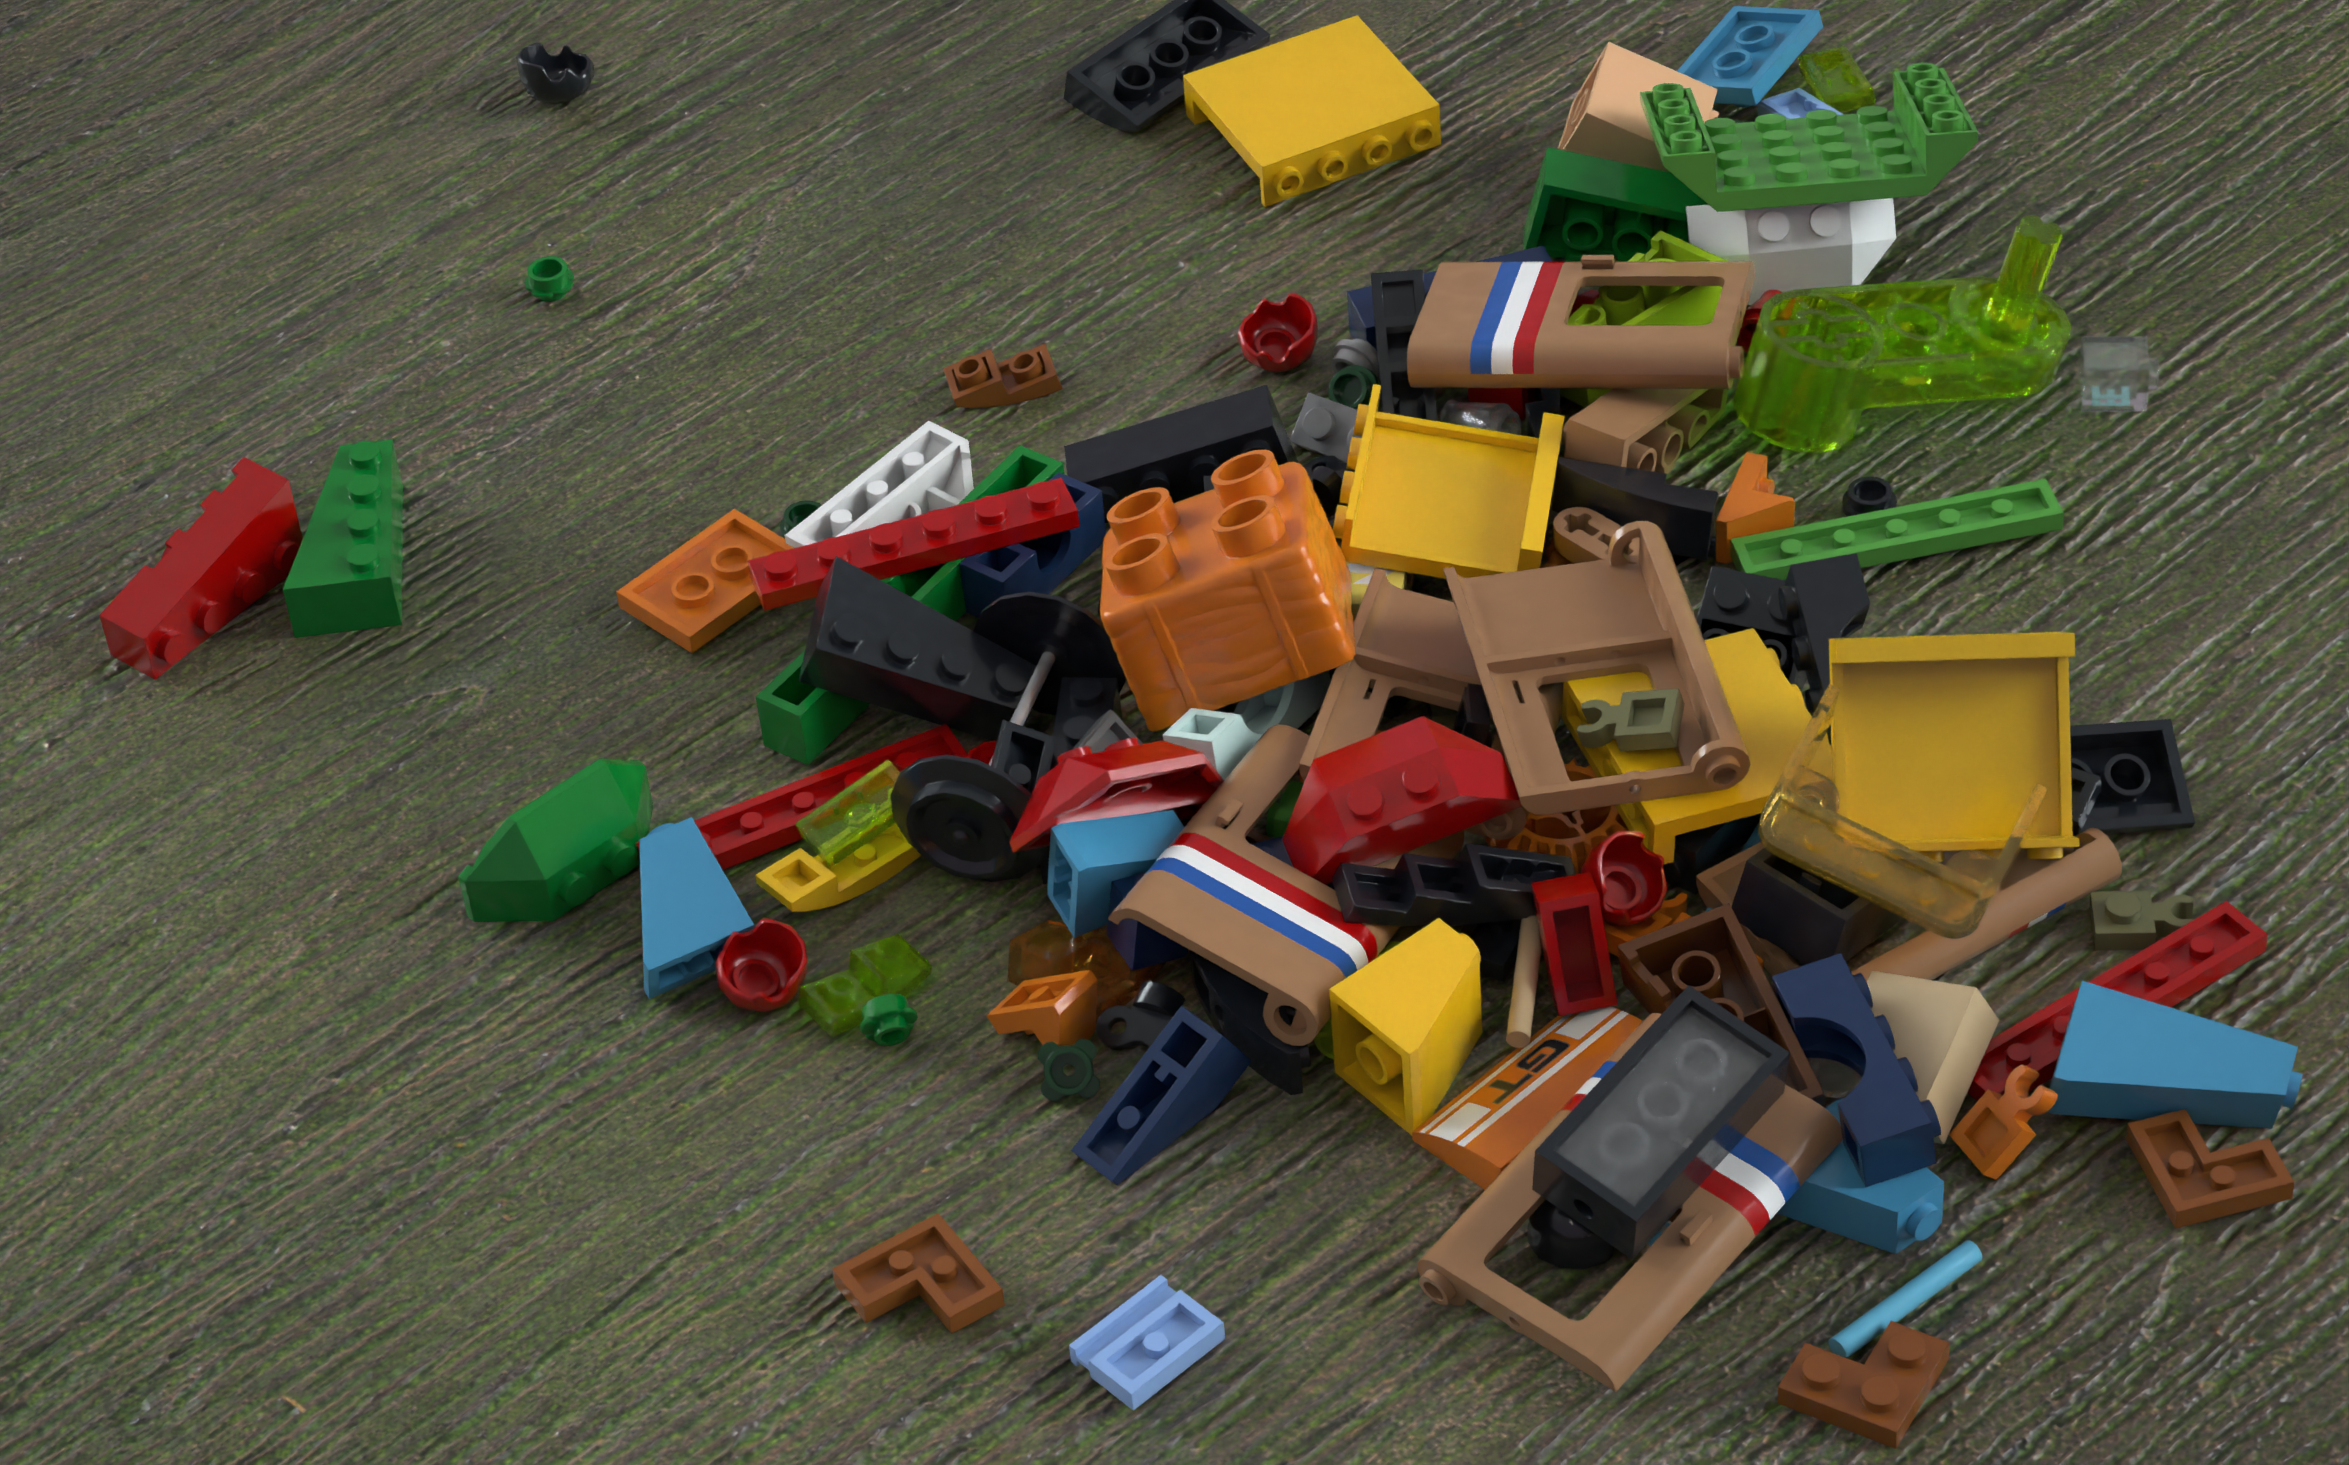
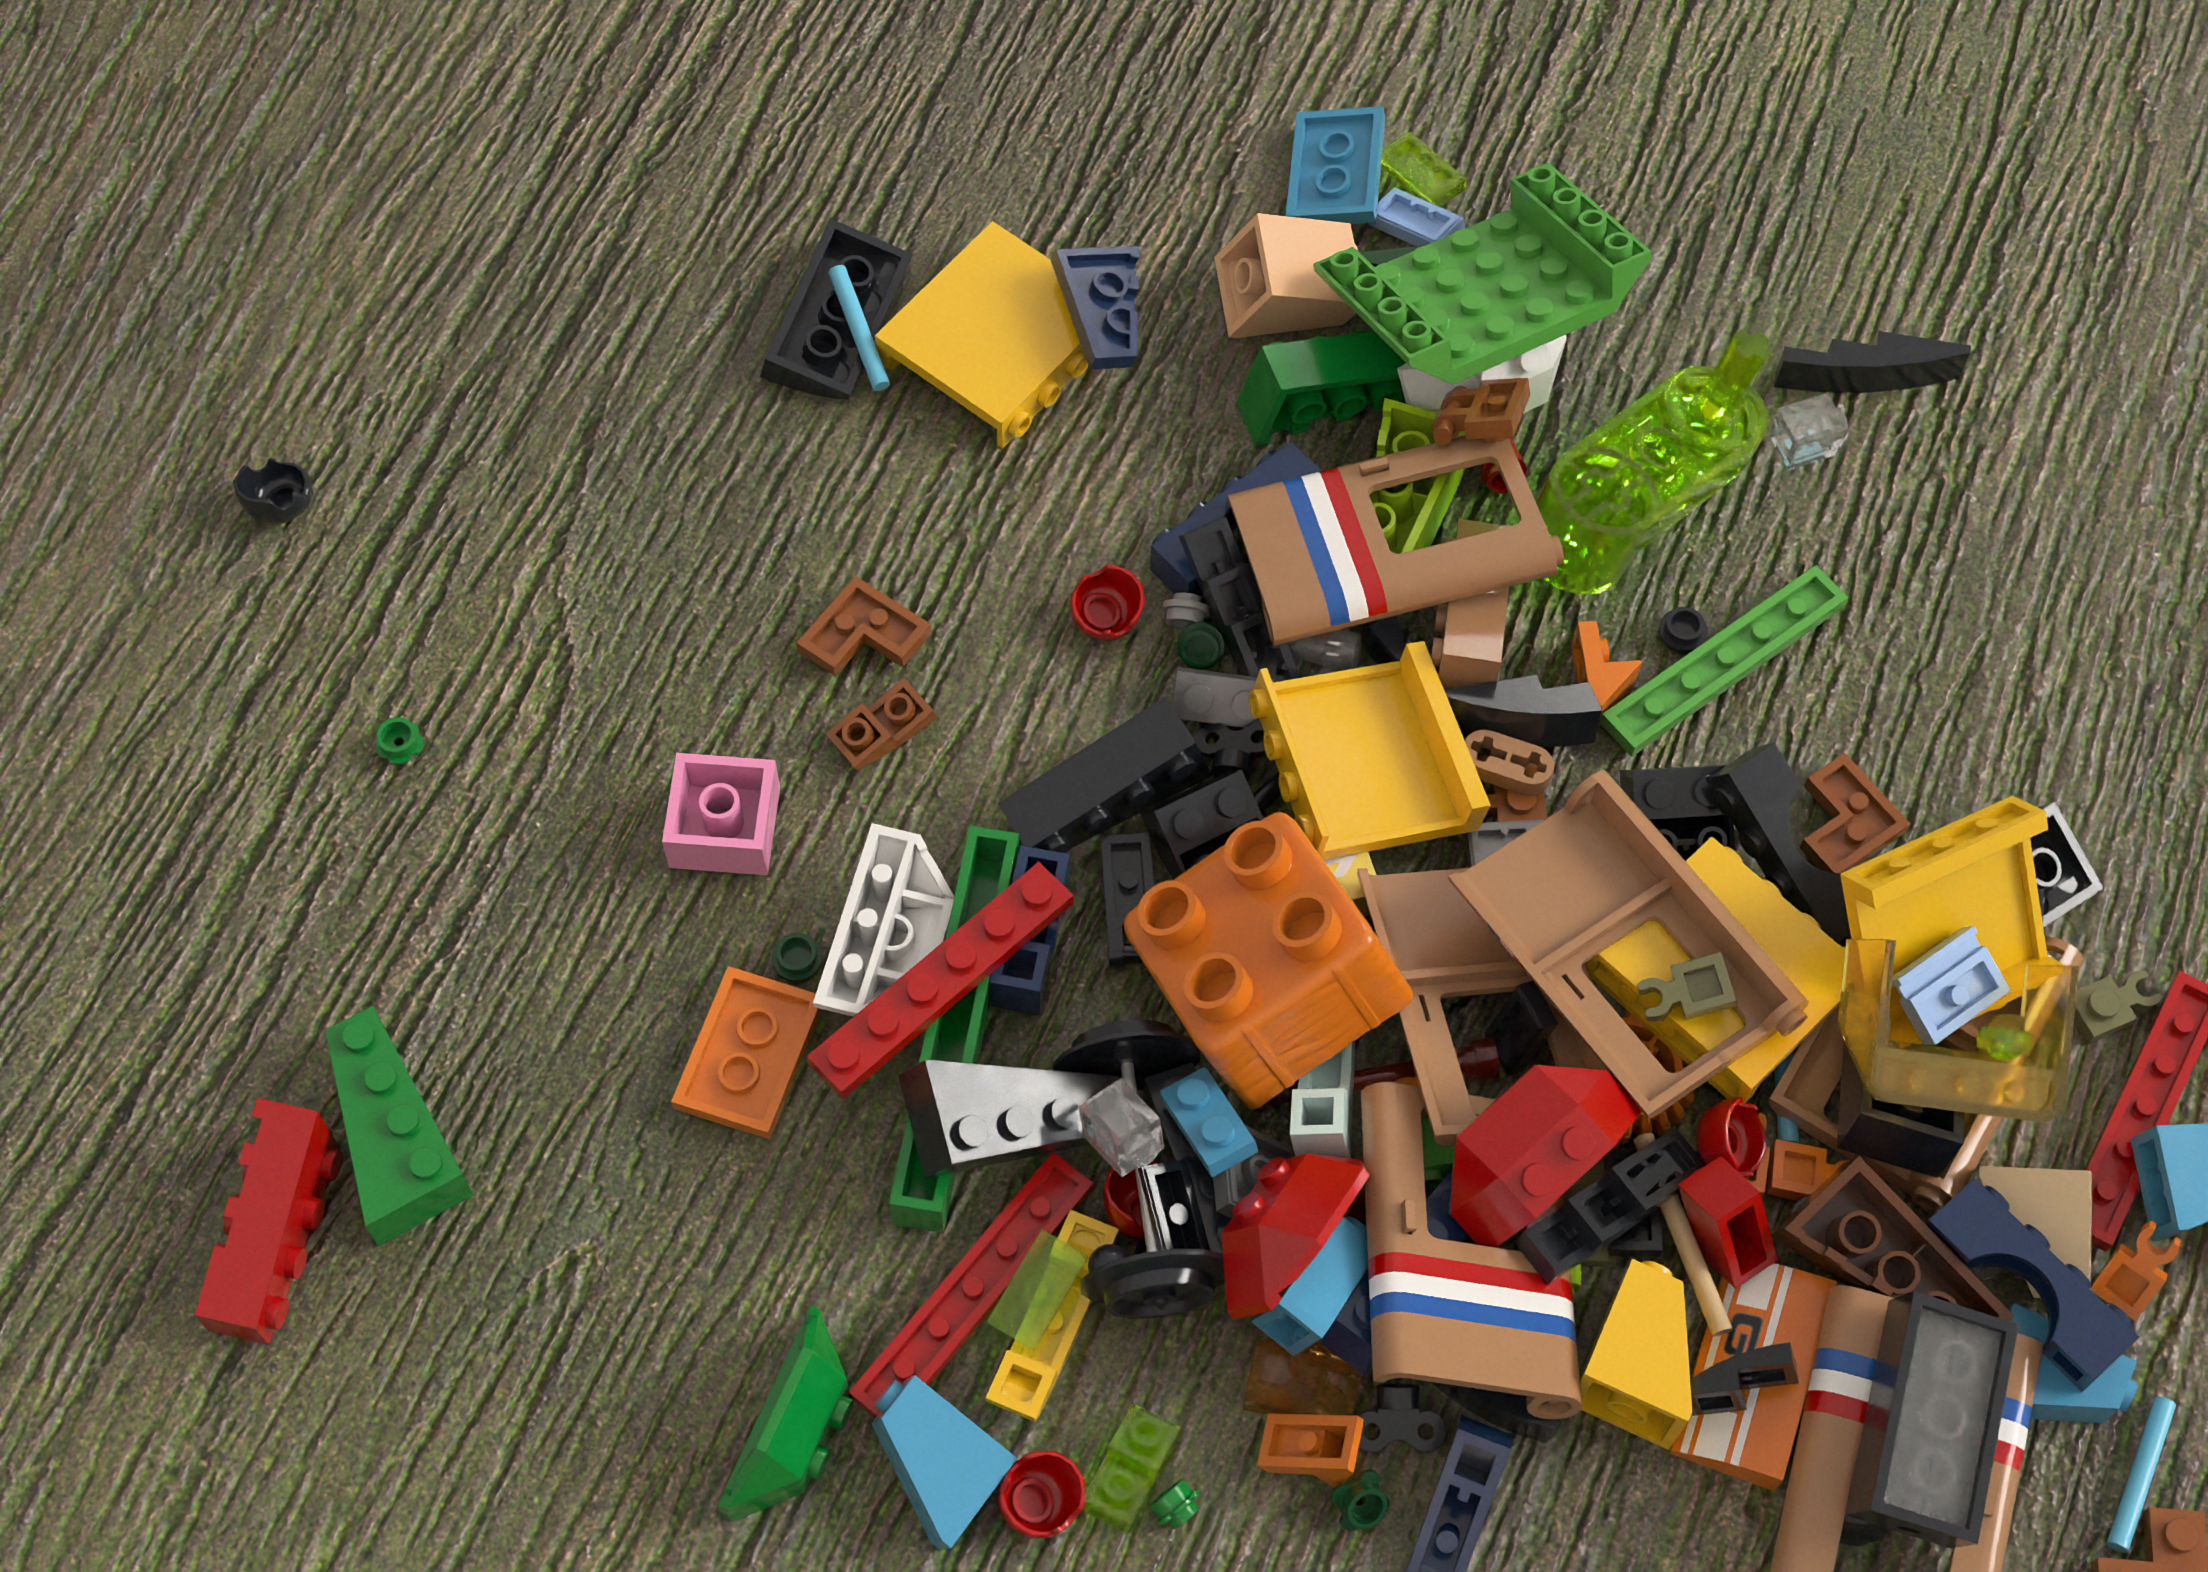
camera: 30 degrees left, 20 degrees up
(801, 393) = (721, 814): none -> bright pink brick
(1000, 679) = (1121, 1127): none -> clear brick
(1033, 291) = (861, 617): none -> dark orange plate
(1090, 704) = (1208, 1122): none -> dark azure plate
(1174, 73) = (859, 328): none -> medium azure bar
(1420, 90) = (1101, 300): none -> dark blue wing
(1495, 1066) = (1723, 1384): none -> black slope
(1736, 243) = (1484, 412): none -> dark orange plate
(1922, 797) = (1949, 986): none -> light blue plate
(1956, 856) = (2004, 1043): none -> clear neon green tile
(2236, 341) = (1888, 365): none -> black slope

